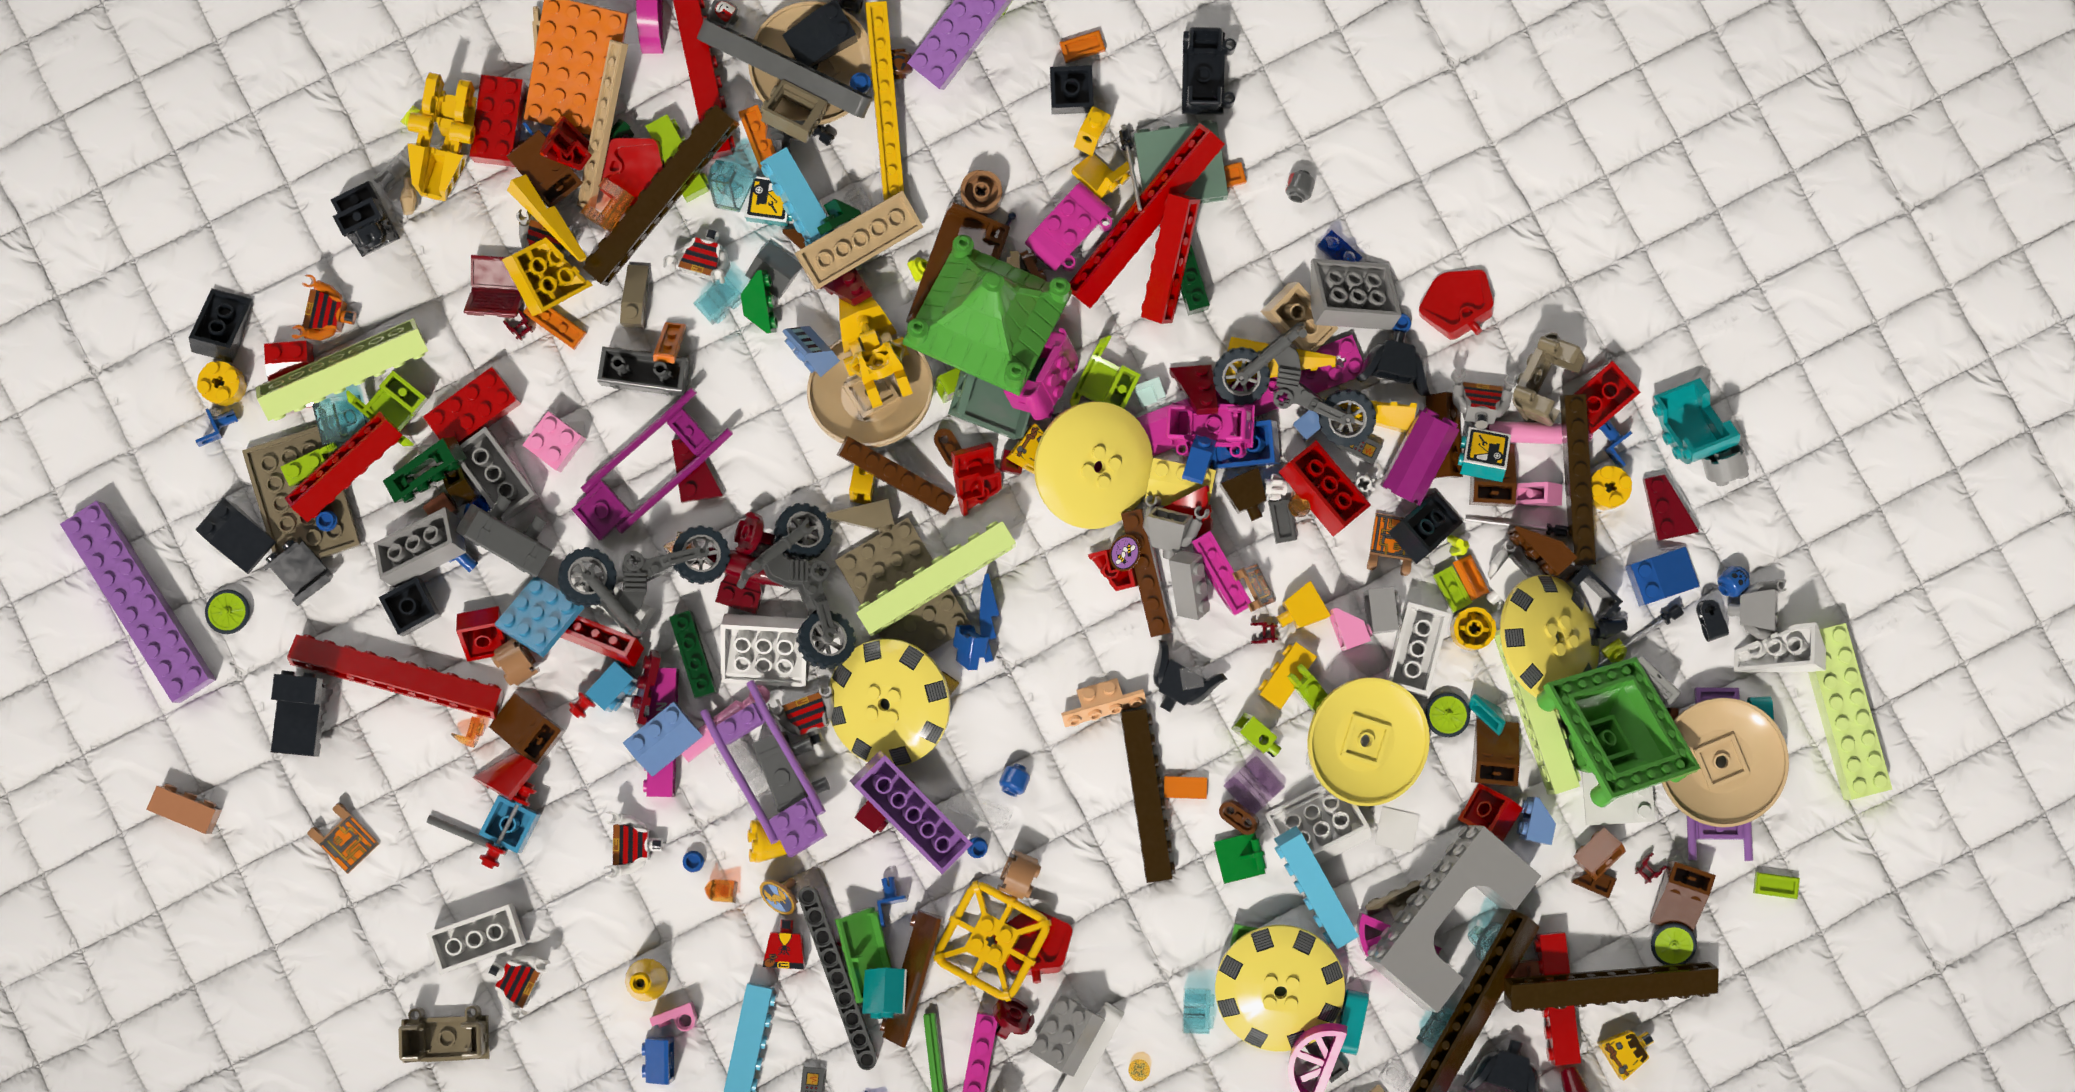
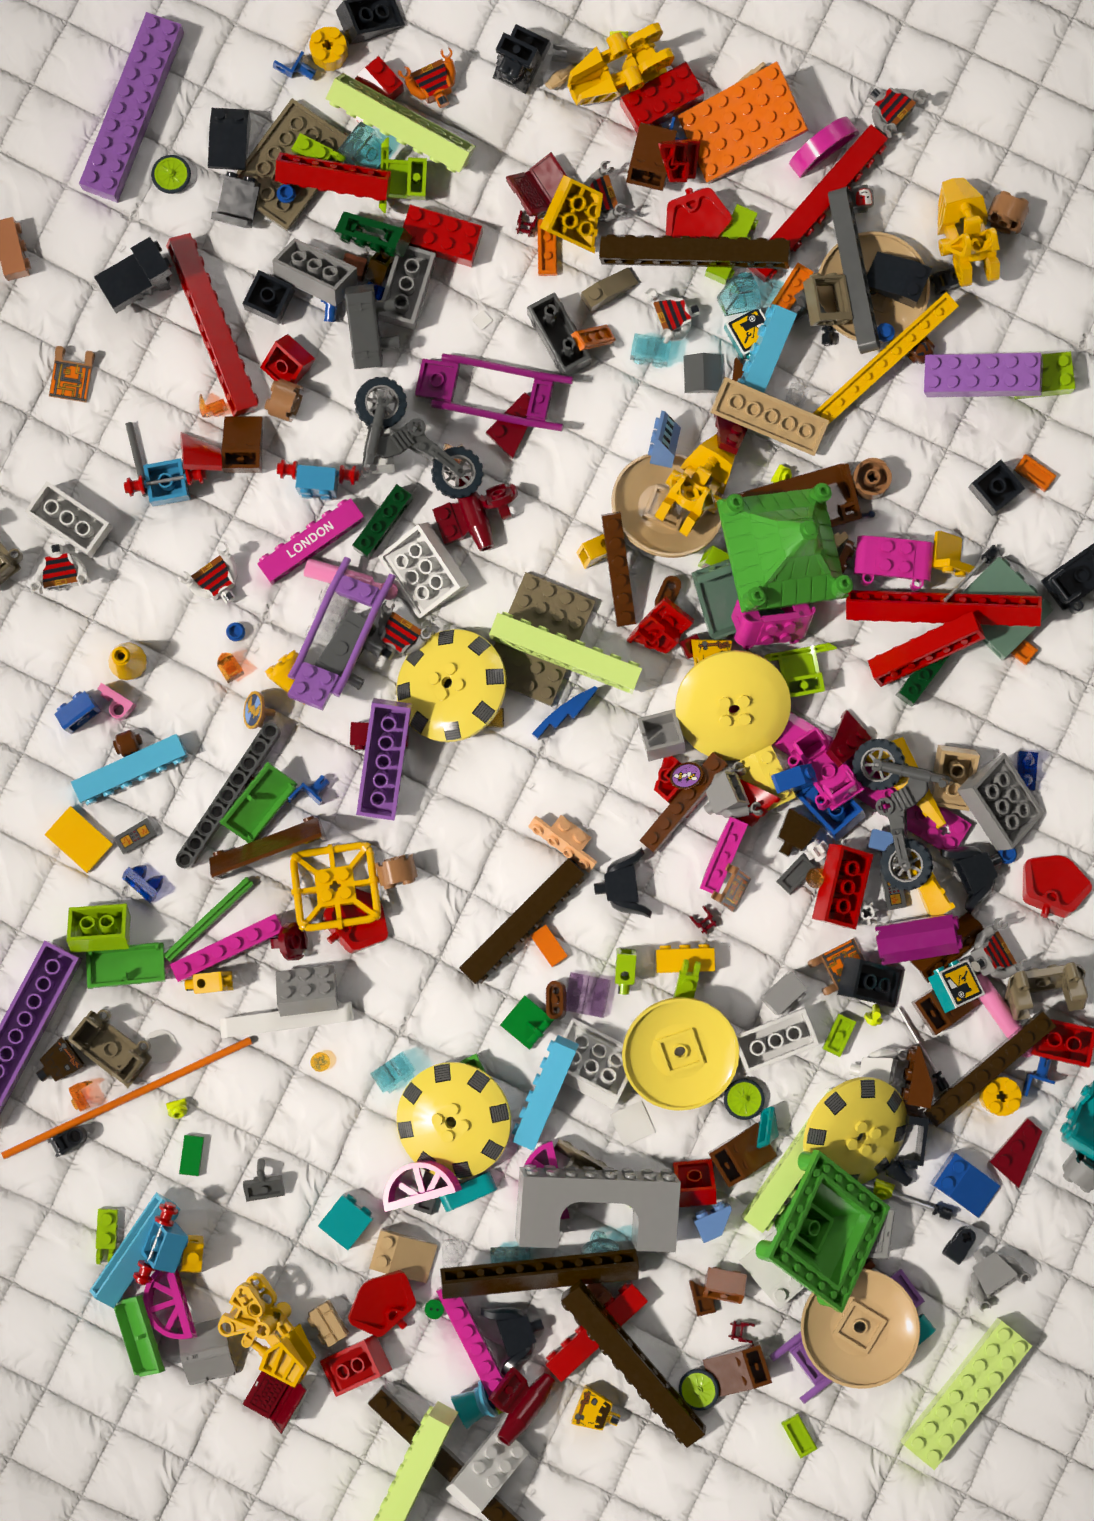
camera: 55 degrees right, 0 degrees up
(538, 616) = (328, 391): dark azure plate -> none
(549, 218) = (618, 185): yellow wedge -> none
(554, 441) = (461, 310): bright pink brick -> none
(602, 123) = (714, 172): tan tile -> none
(604, 640) = (340, 429): red brick -> none
(614, 209) = (659, 227): clear orange connector -> none
(619, 129) = (720, 188): dark green tile -> none
(643, 697) = (353, 495): dark red wing -> none
(662, 739) = (306, 544): medium blue slope -> none
(721, 1034) = (127, 743): none -> reddish brown head
(759, 303) = (671, 379): green slope -> none
(785, 948) = (221, 742): red torso -> none
(808, 582) = (495, 562): piece -> none
(838, 214) = (776, 388): dark green slope -> none
(868, 516) = (576, 574): dark tan slope -> none
(884, 992) = (241, 835): teal piece -> none
(969, 646) = (535, 714): blue piece -> none
(978, 848) = (394, 827): blue plate -> none
(979, 809) = (423, 808): clear brick -> none
(1014, 780) = (462, 817): blue head -> none
(1072, 547) = (661, 735): none -> light grey piece
(1094, 127) = (981, 525): yellow torso -> none
(1150, 392) = (817, 708): light aqua panel -> none
(1189, 585) = (697, 839): light grey brick -> none
(1191, 677) = (631, 890): clear tile -> none
(1299, 186) = (1052, 705): dark grey head -> none
(1303, 608) = (743, 936): yellow torso -> none
(1349, 629) = (752, 981): bright pink slope -> none
(1460, 628) = (831, 1074): yellow brick -> none
(1470, 577) = (858, 1042): orange tile -> none
(1539, 494) = (956, 1047): bright pink slope -> none
(1733, 581) = (1001, 1240): blue head -> none
(1789, 651) = (980, 1319): white wedge -> none

